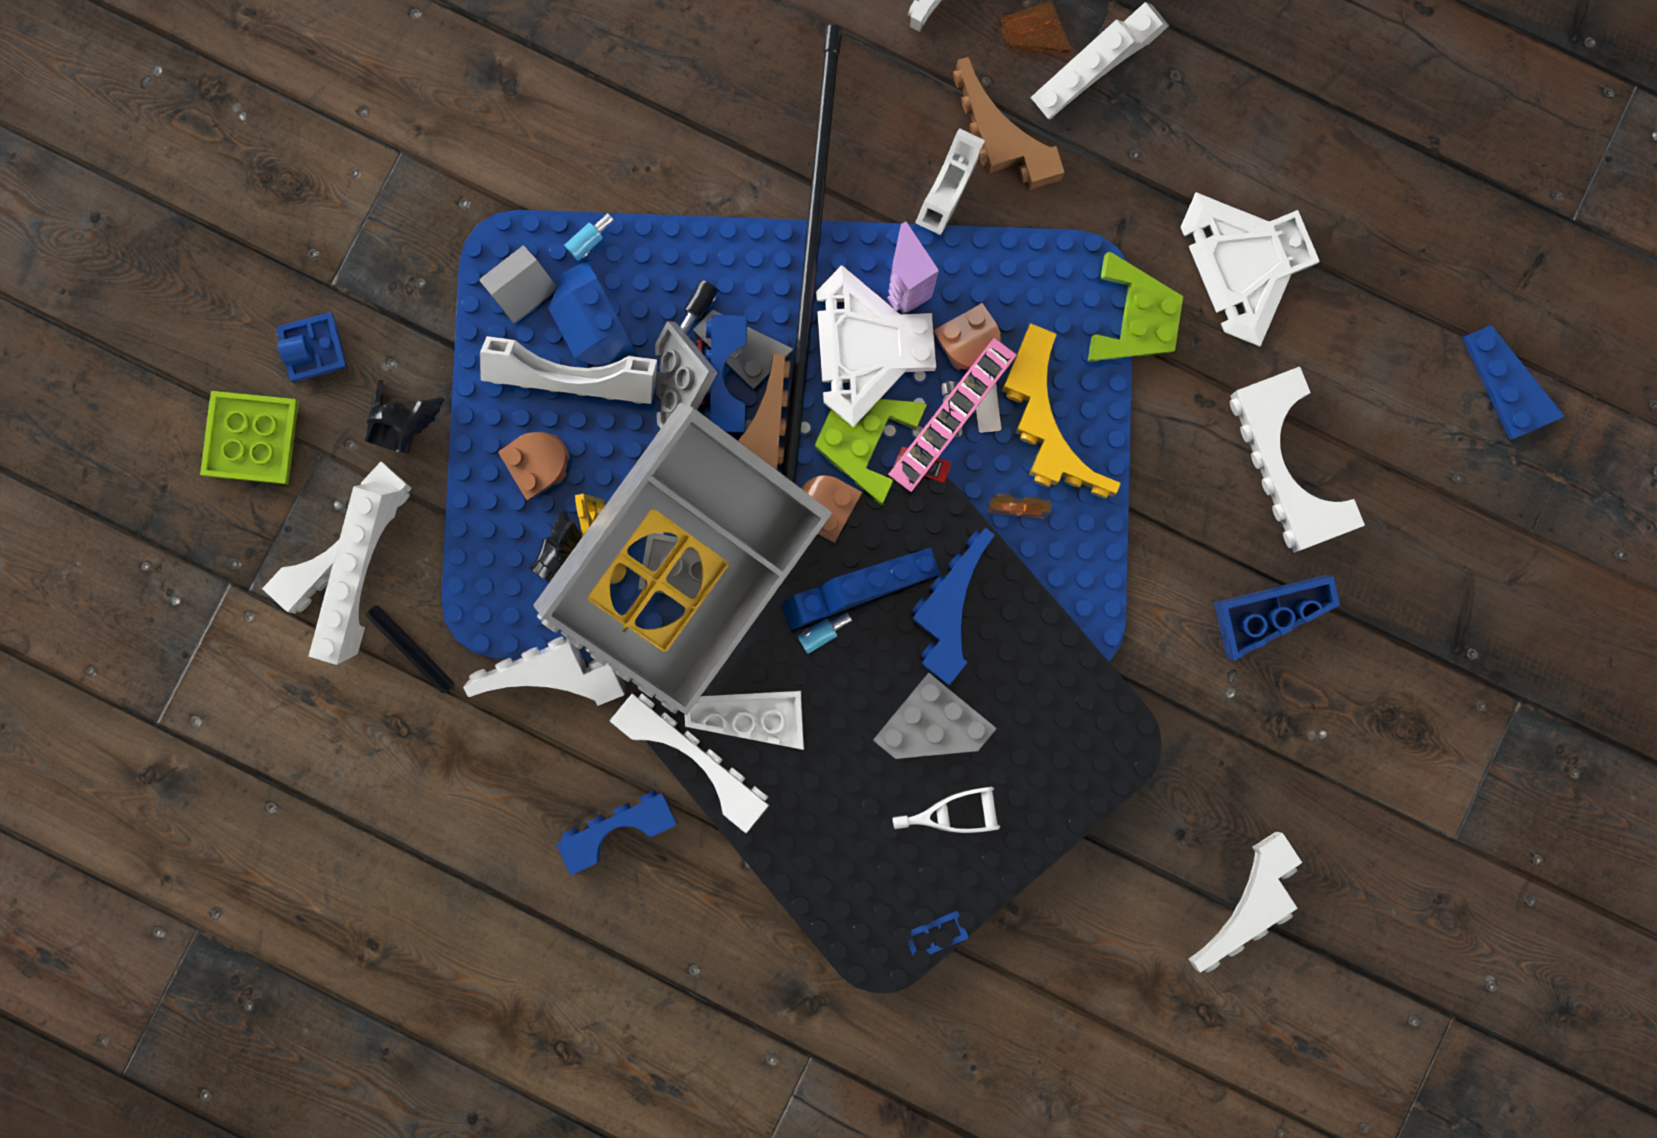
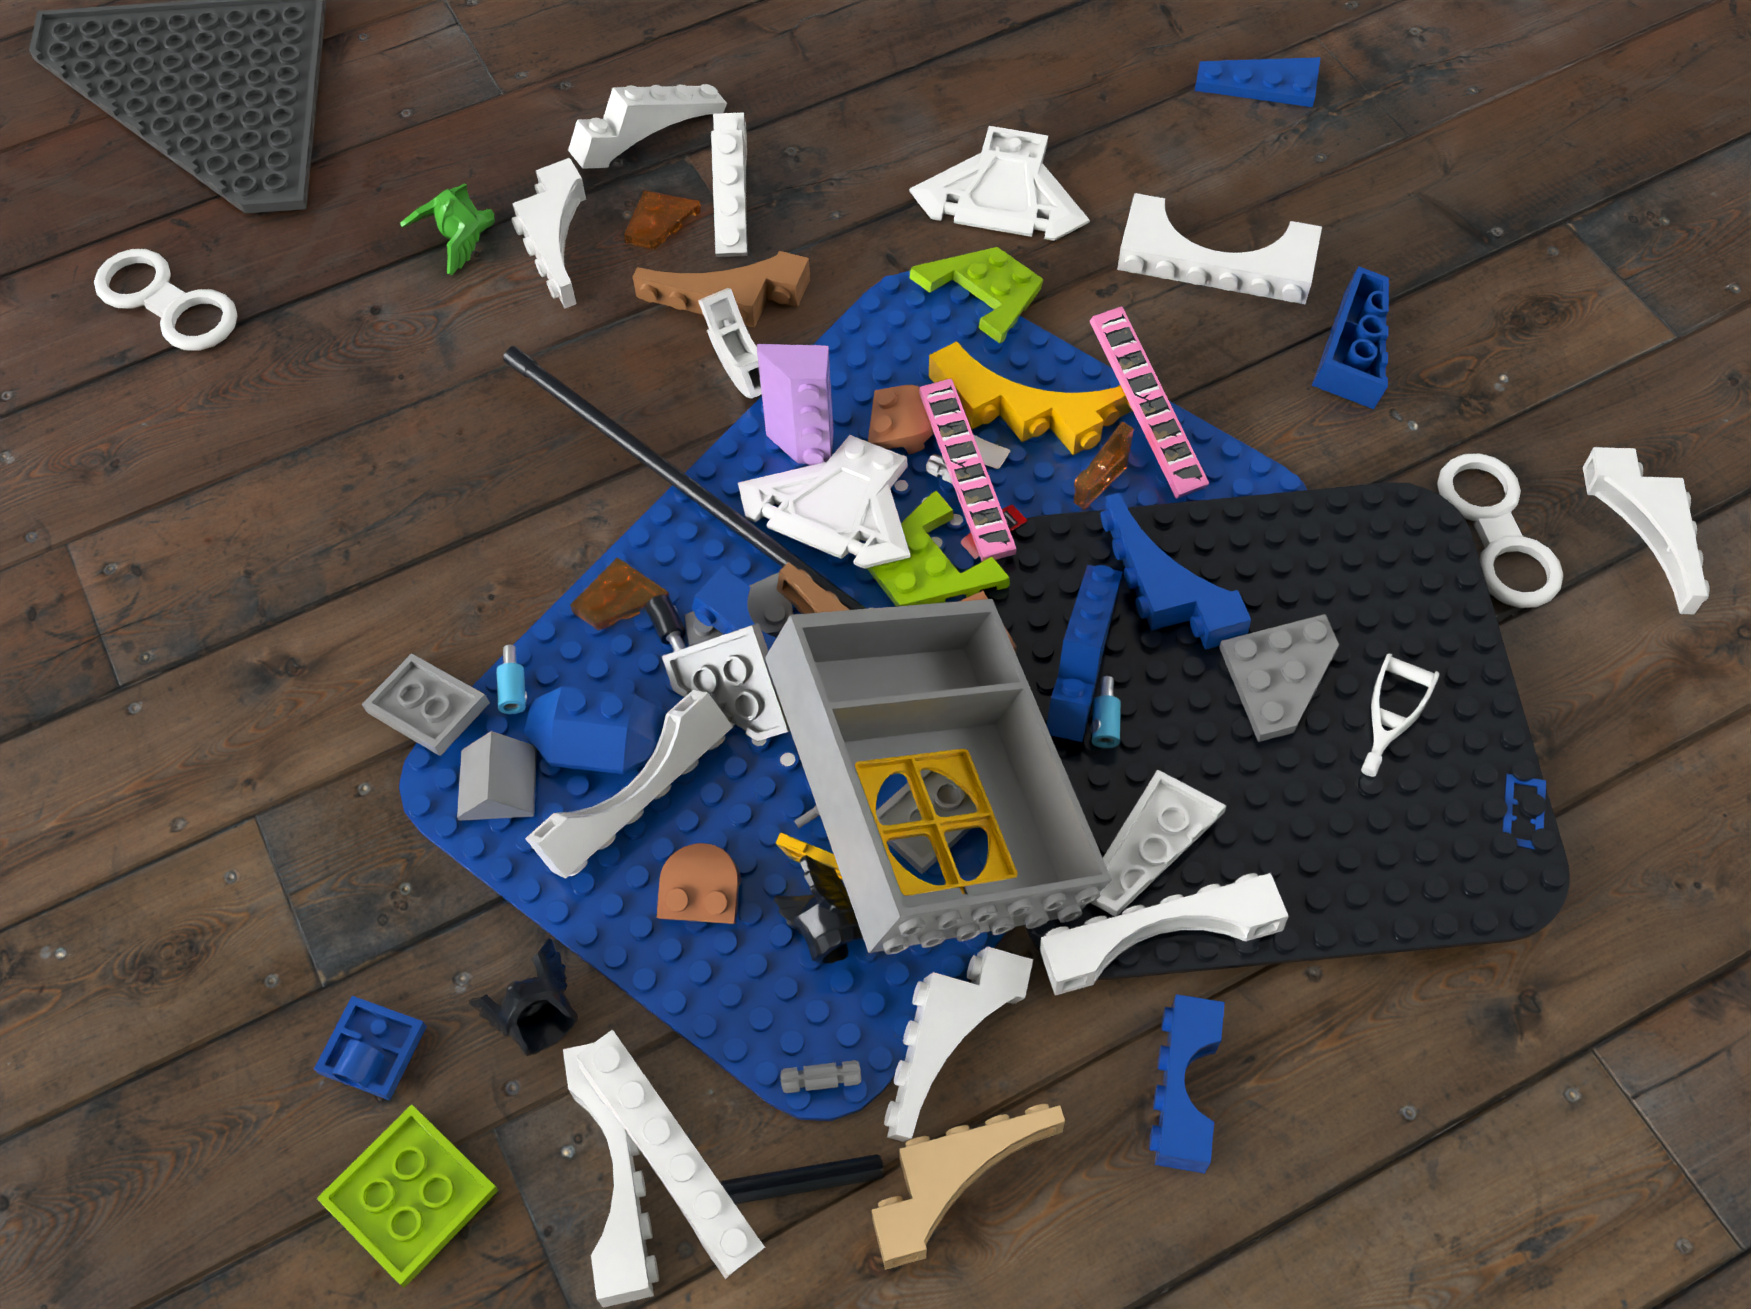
camera: 50 degrees left, 25 degrees down
(466, 724) = (943, 1169): none -> tan arch
(471, 619) = (820, 1076): none -> light grey axle
(536, 196) = (426, 704): none -> light grey plate
(698, 253) = (615, 595): none -> clear orange wing
(1097, 502) = (1149, 402): none -> tile
(1172, 802) = (1500, 532): none -> white bar

